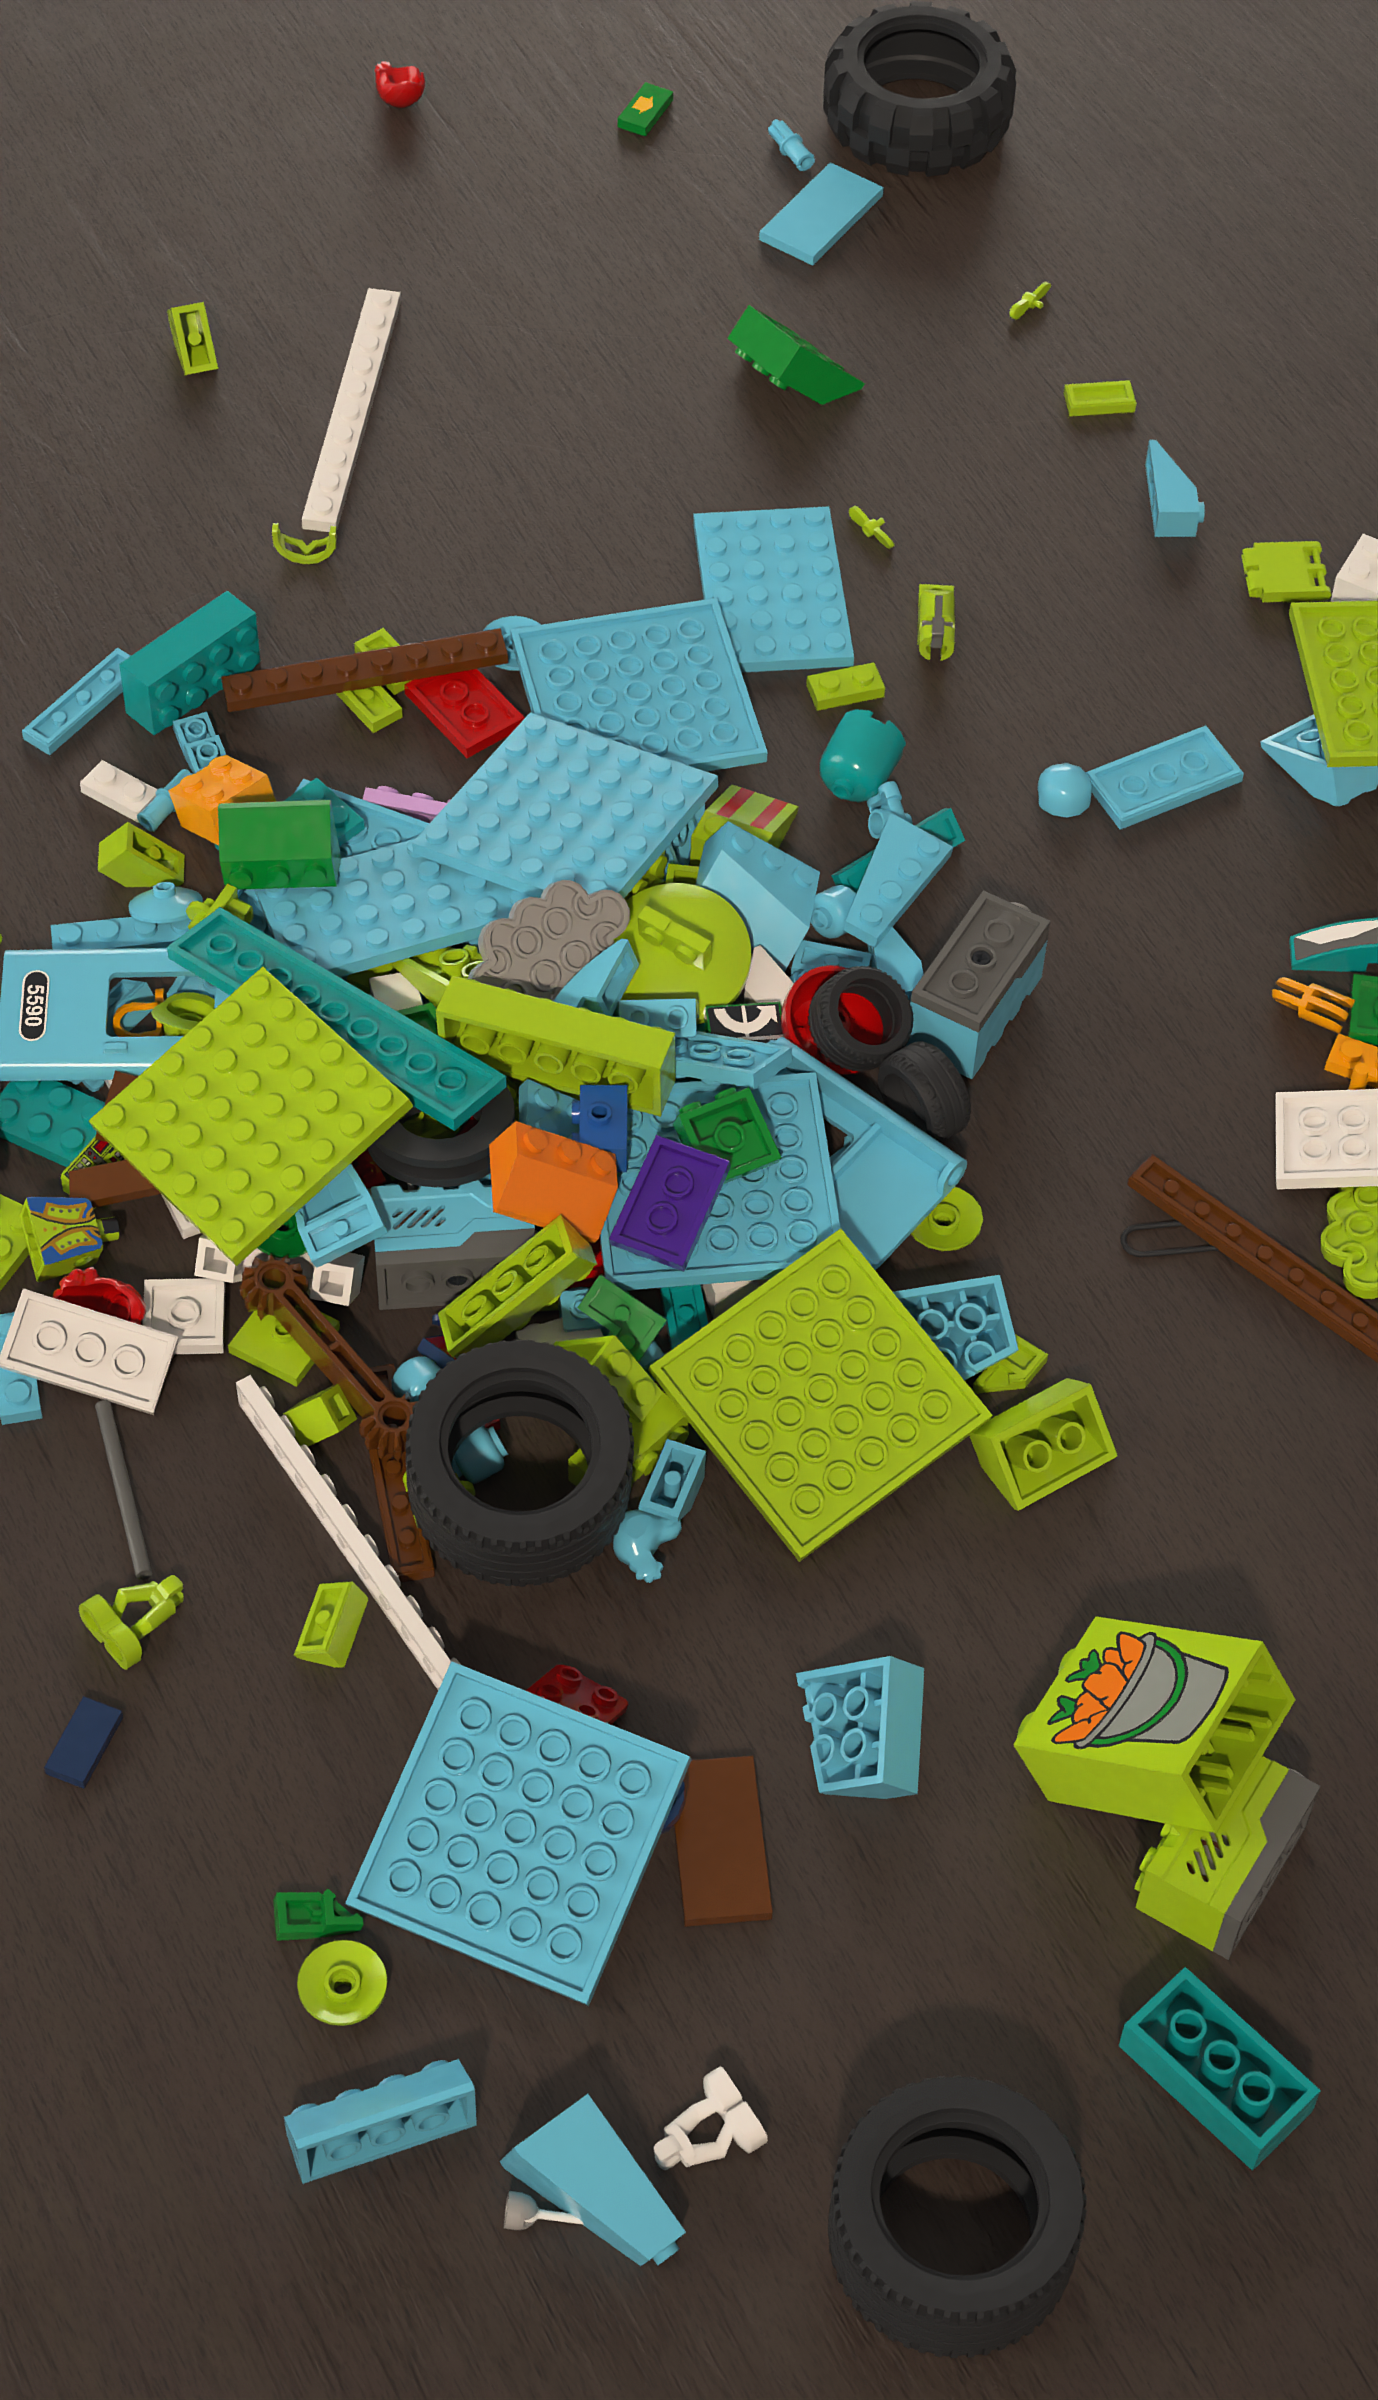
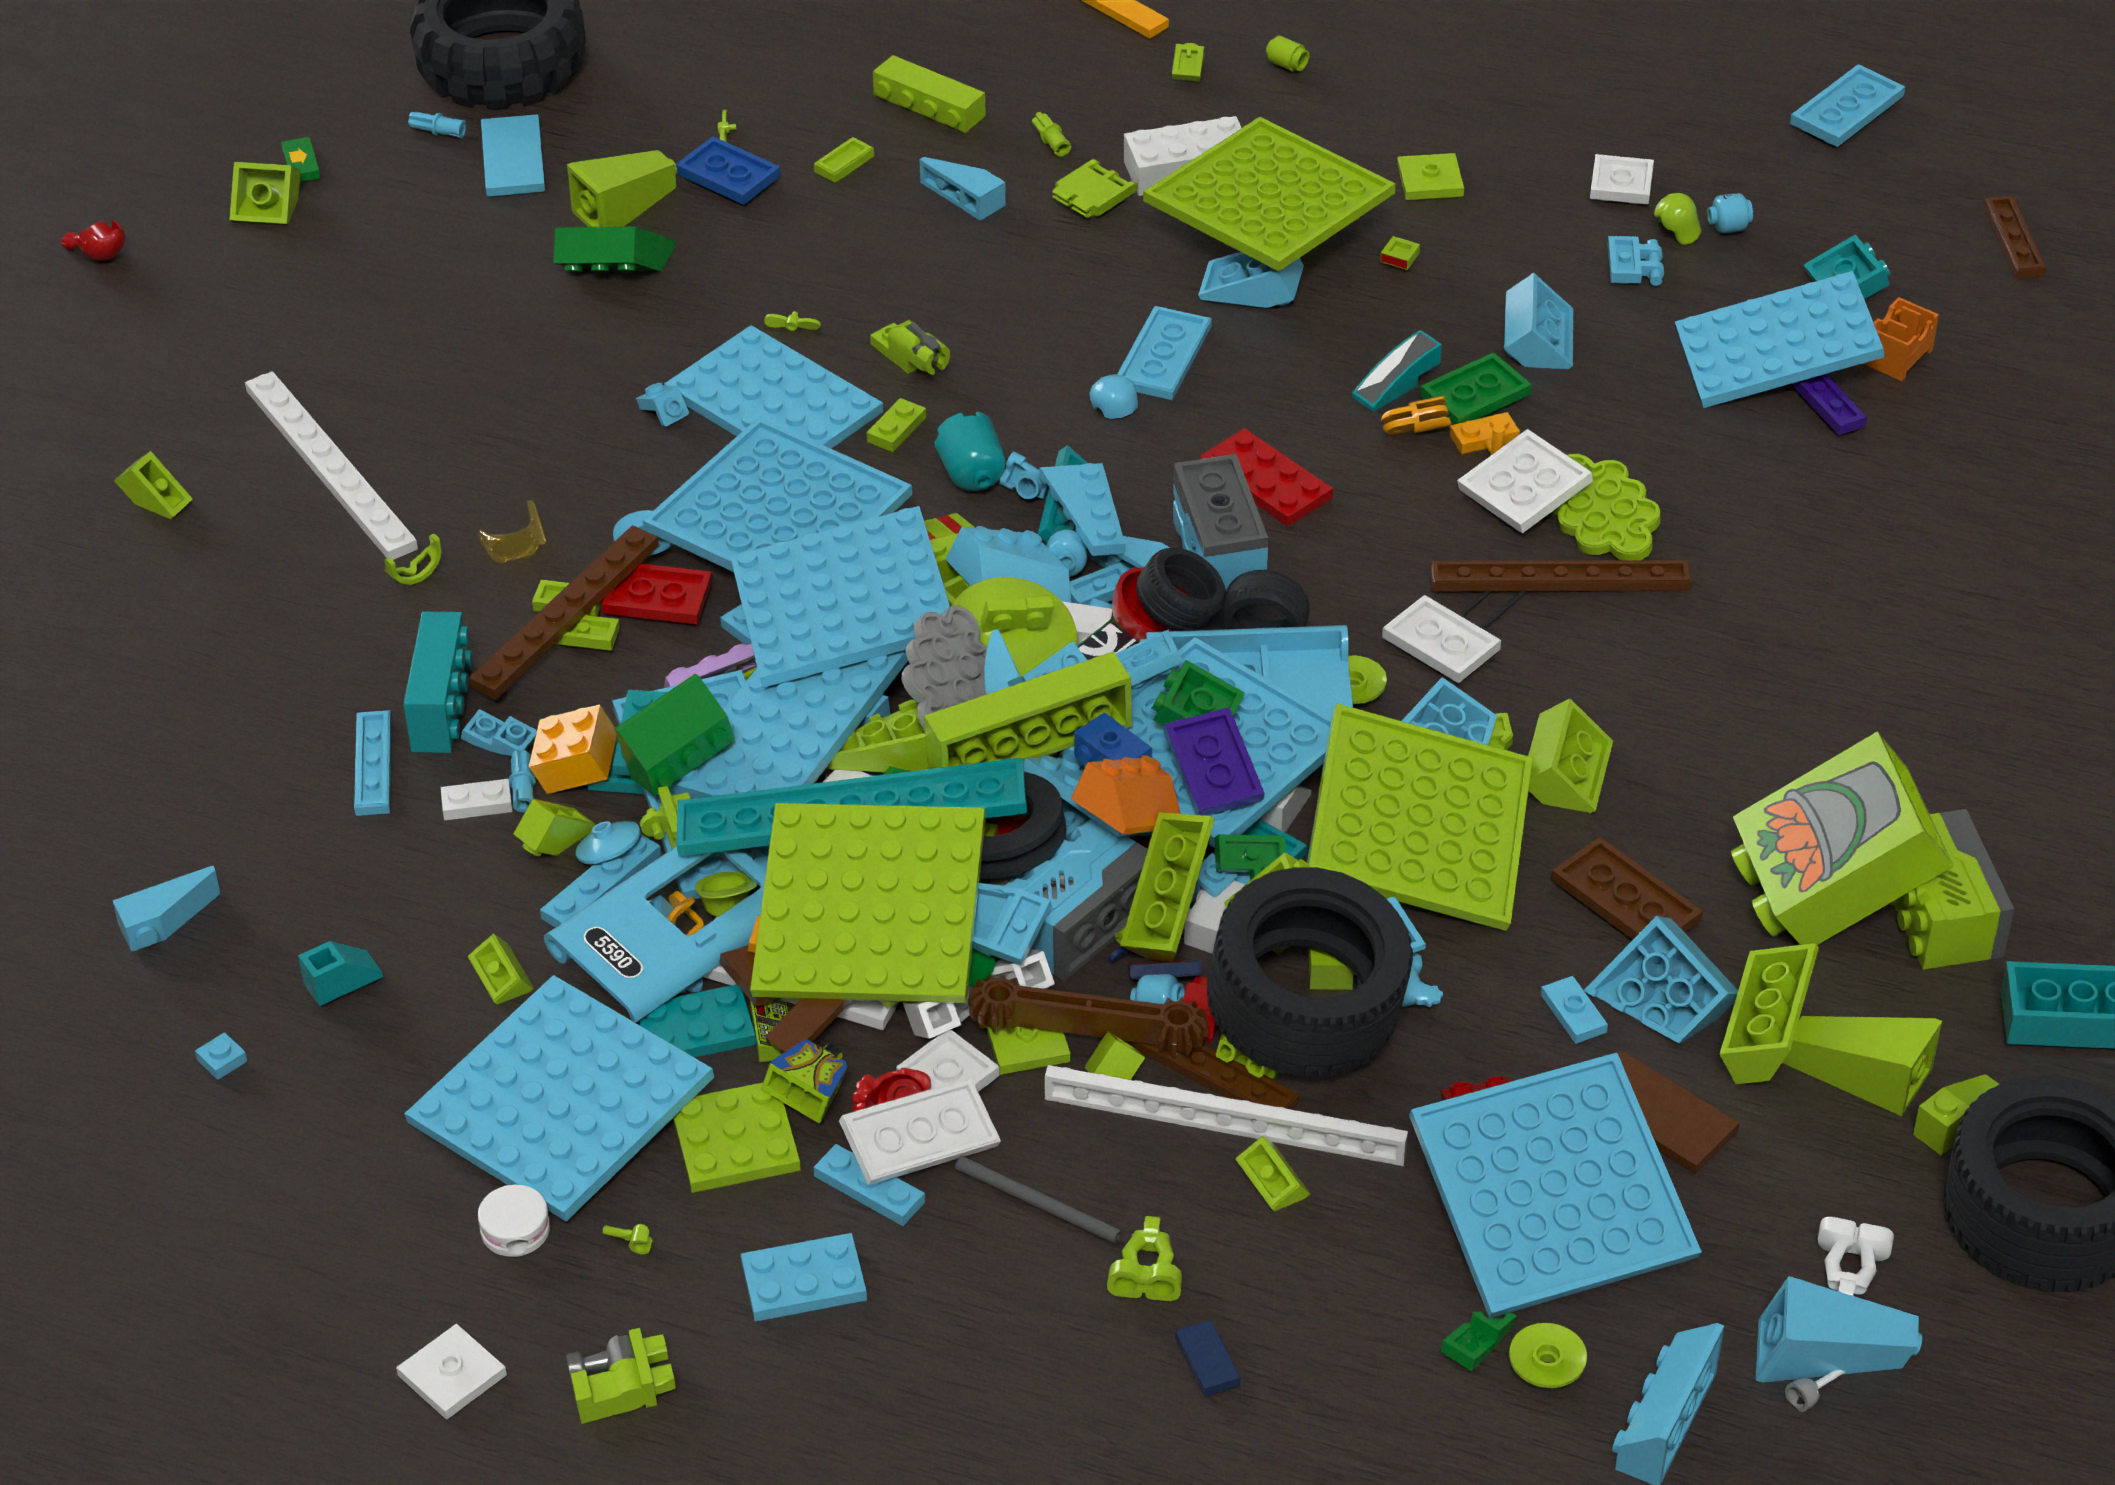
camera: 40 degrees left, 10 degrees down
(411, 583) = (516, 544): none -> clear yellow helmet
(575, 122) = (264, 192): none -> lime slope
(672, 533) = (666, 402): none -> medium azure bracket
(763, 1684) = (1574, 1009): none -> medium azure plate
(864, 302) = (619, 187): none -> lime slope
(906, 1826) = (1767, 1011): none -> lime slope
(940, 1611) = (1622, 889): none -> reddish brown plate
(959, 1953) = (1868, 1056): none -> lime slope
(982, 344) = (728, 170): none -> blue plate
(1021, 2070) = (1941, 1113): none -> lime slope
(1074, 1237) = (1441, 638): none -> white plate
(1110, 964) = (1274, 479): none -> red plate
(1244, 381) = (929, 93): none -> lime brick
(1313, 492) = (1051, 134): none -> lime axle

